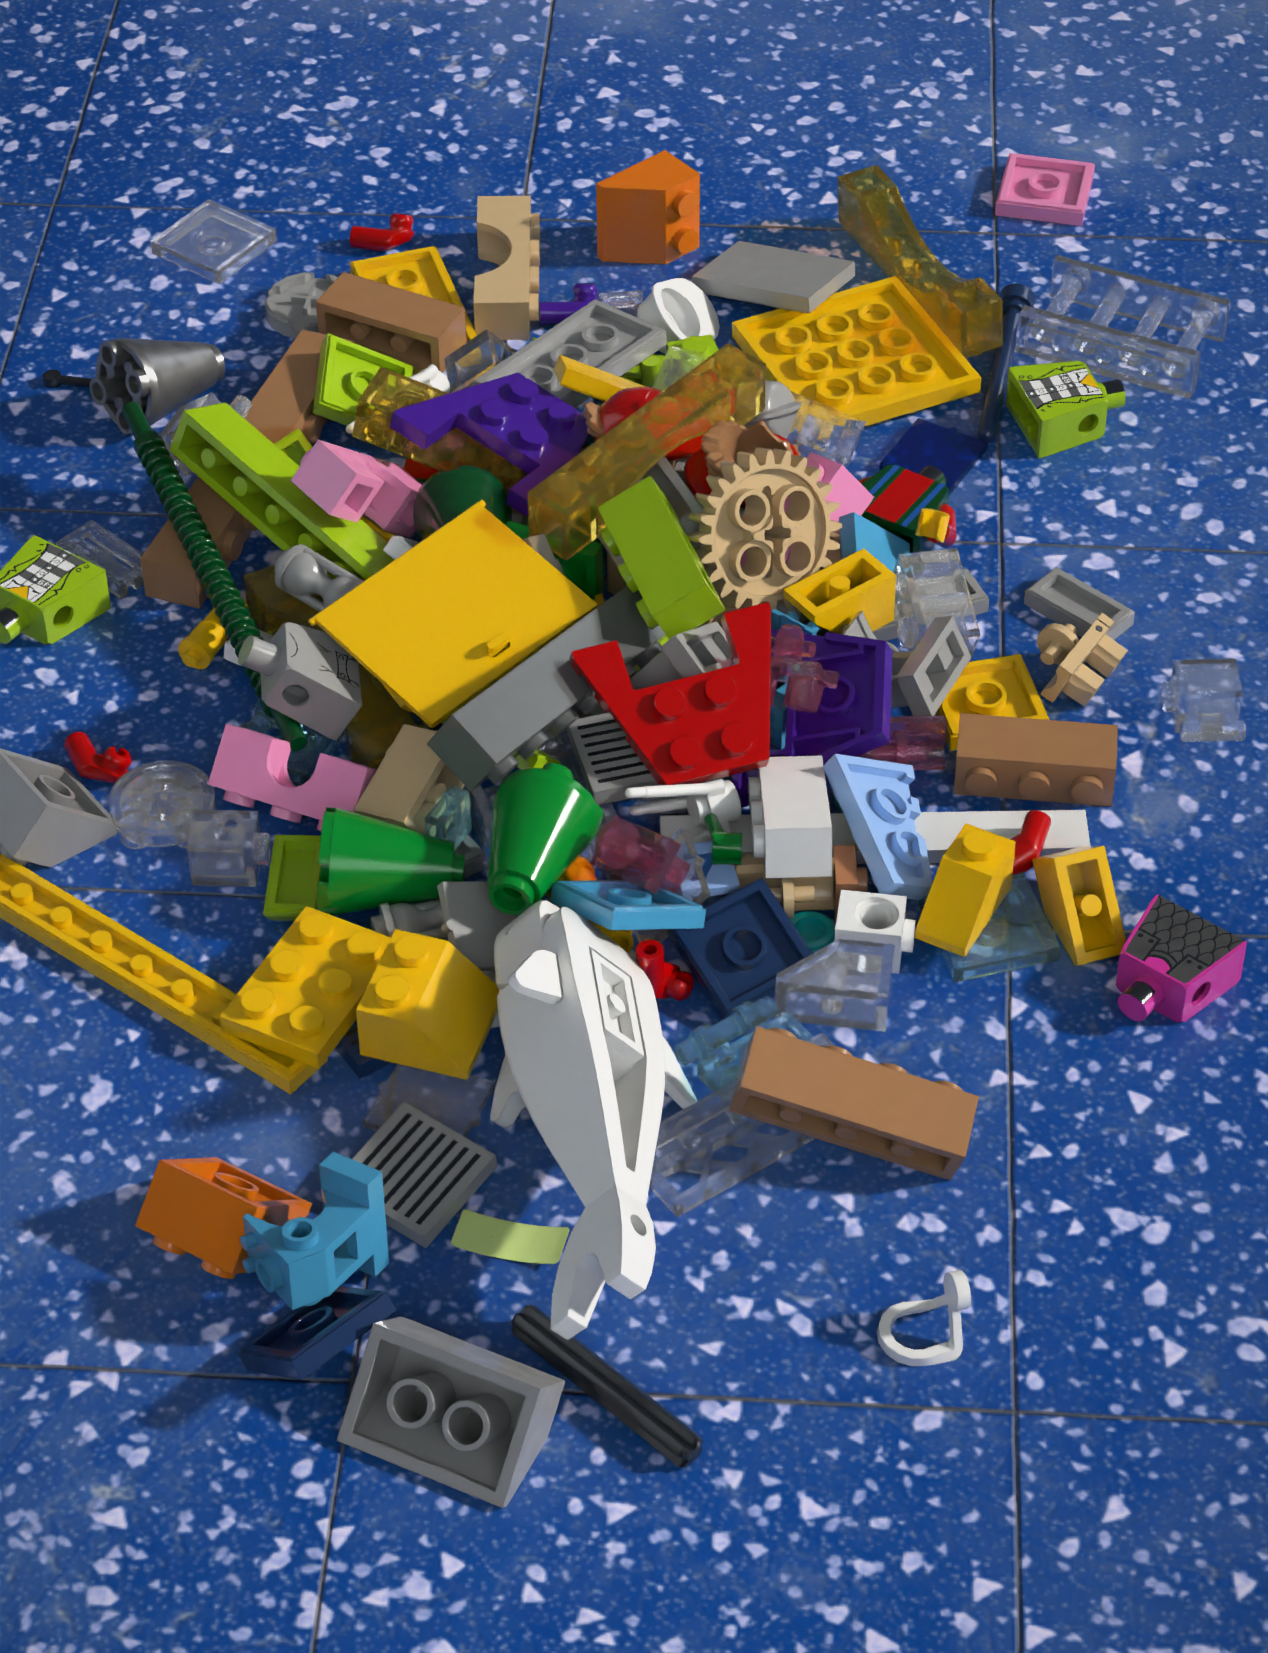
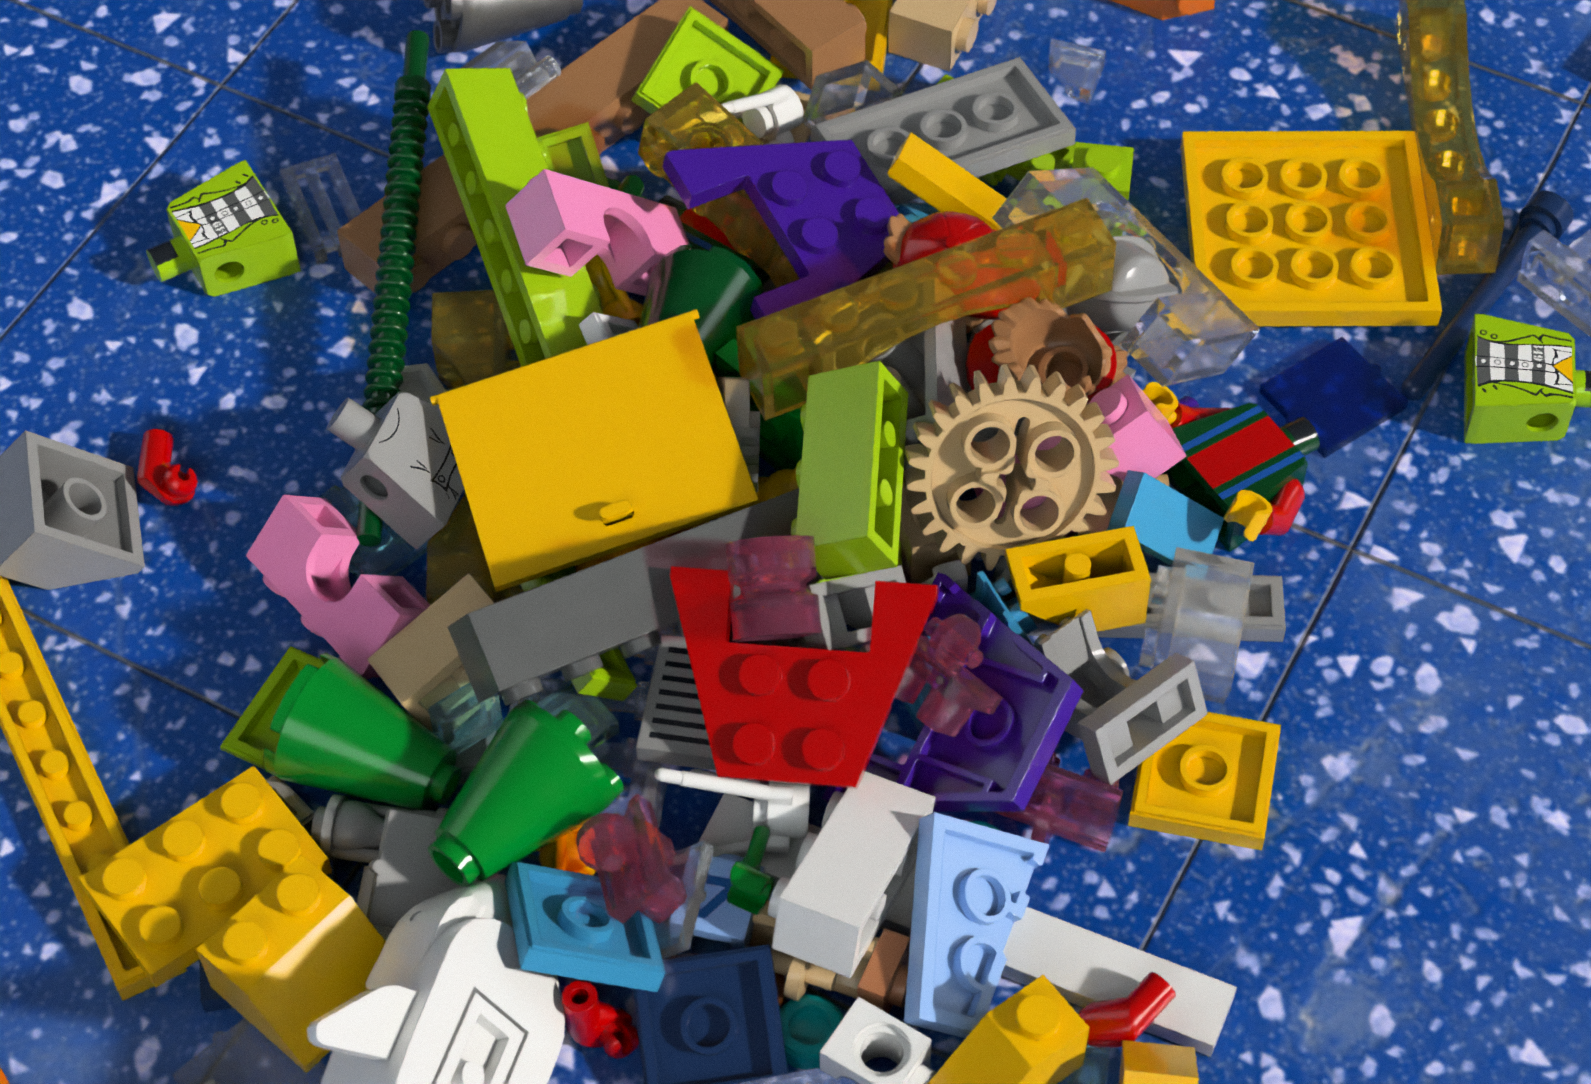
camera: 25 degrees right, 10 degrees up
(157, 803) = (194, 559): clear tile -> none
(203, 642) = (349, 361): yellow piece -> none
(226, 848) = (224, 645): clear brick -> none
(304, 573) = (485, 324): light grey piece -> none
(555, 312) = (1030, 46): dark purple arm -> none
(652, 632) = (773, 588): none -> clear pink wheel
(680, 310) = (1125, 102): white piece -> none
(774, 276) = (1267, 84): light grey tile -> none
(1036, 759) = (1212, 891): medium nougat brick -> none
(1061, 646) = (1374, 754): tan hips -> none
(1076, 603) = (1394, 681): light grey tile -> none
(1205, 700) = (1471, 889): clear brick -> none

